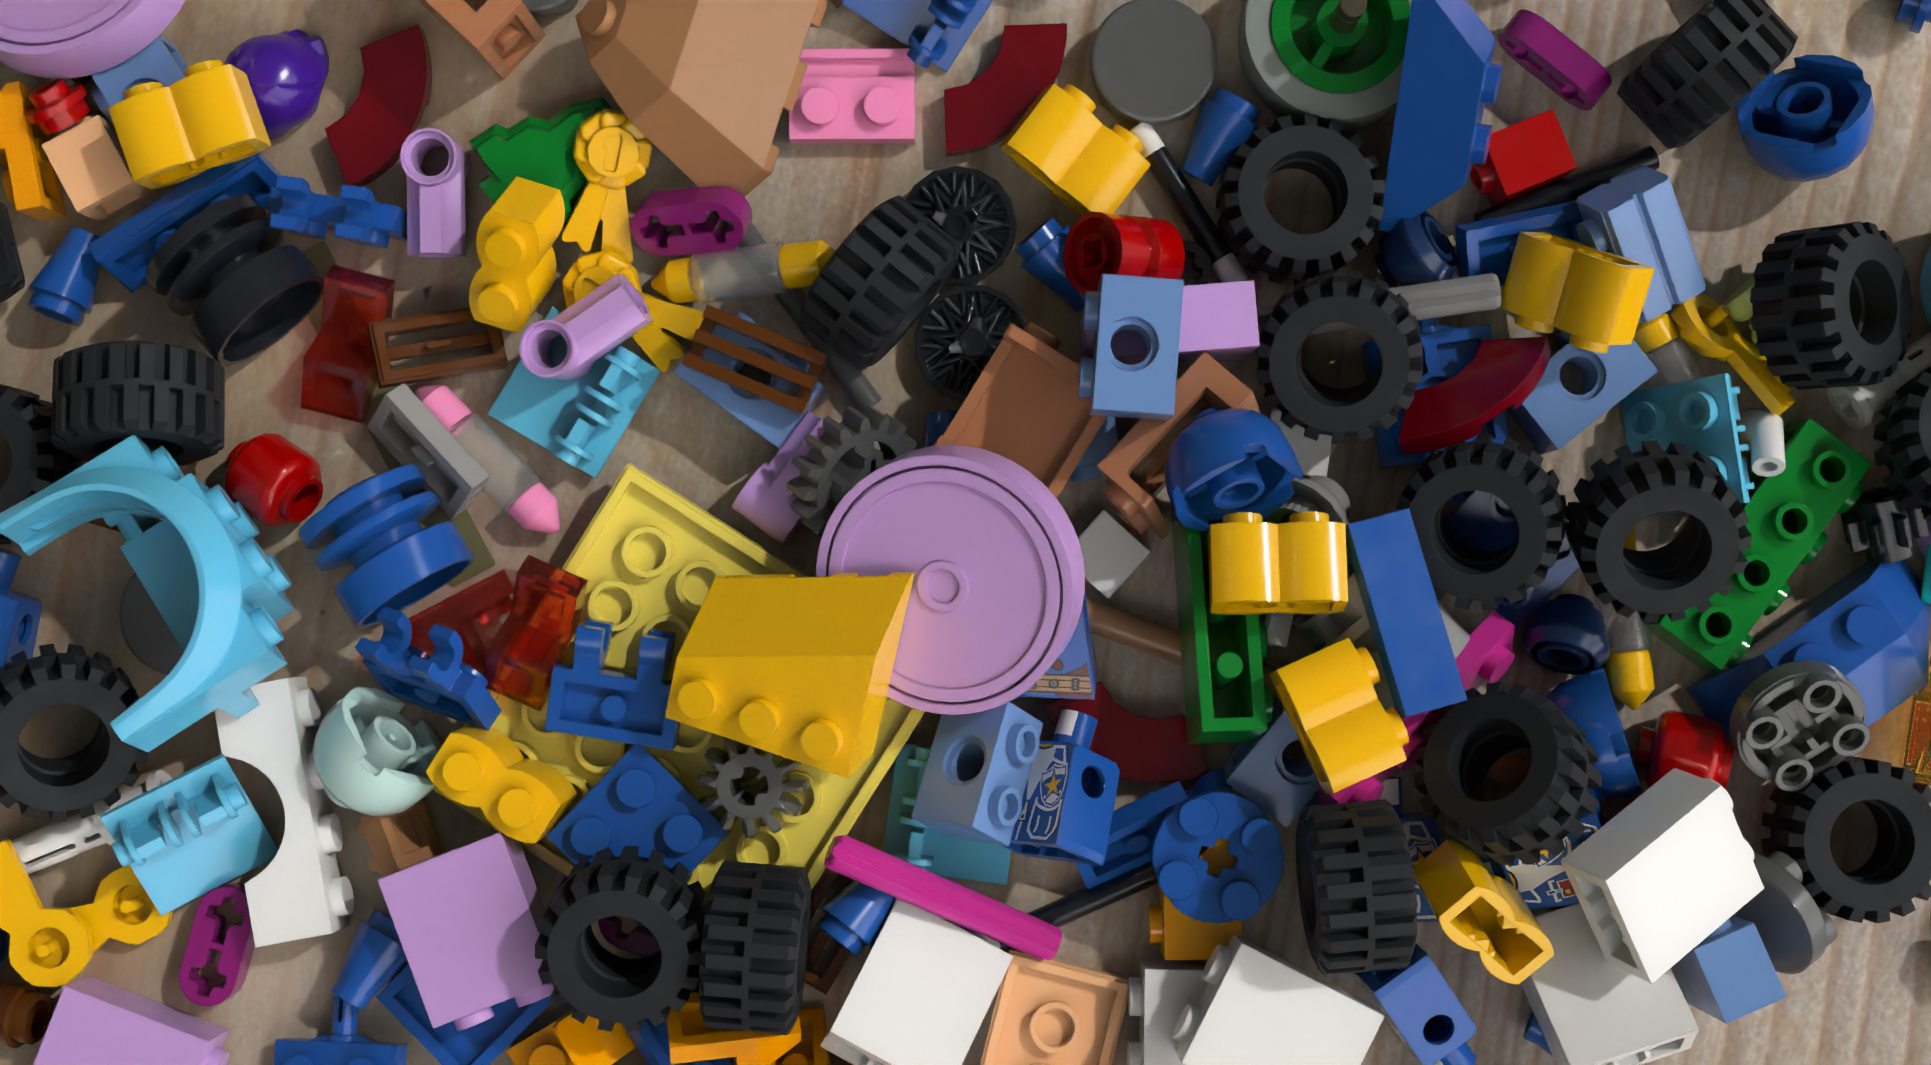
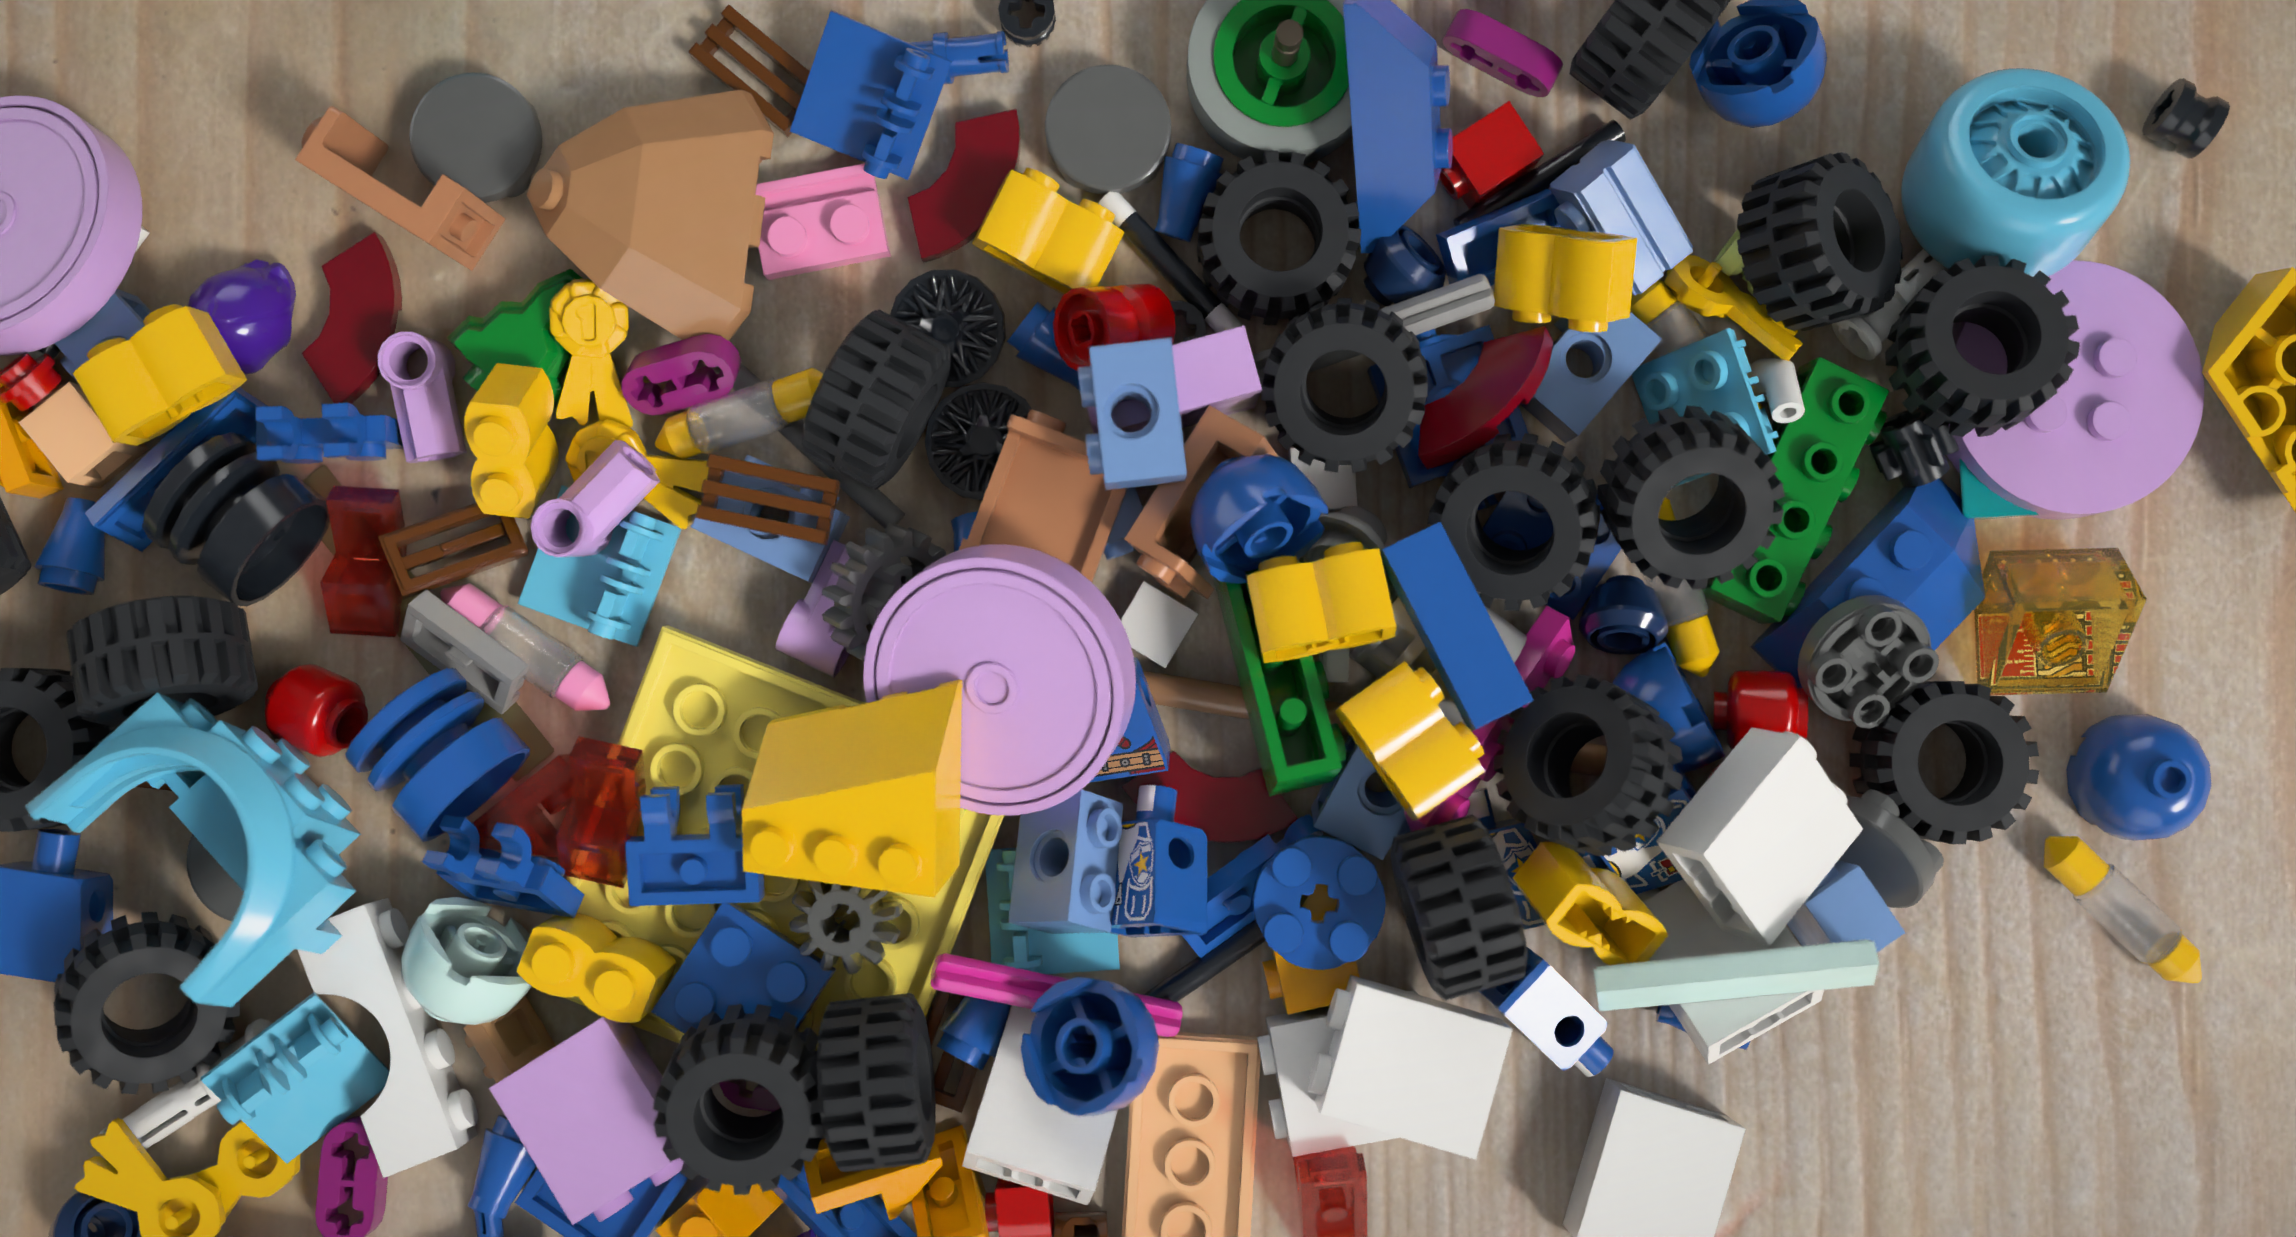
camera: 15 degrees left, 0 degrees up
(970, 953) = (1090, 1047): none -> blue cylinder
(1614, 1006) = (1736, 975): none -> light aqua tile

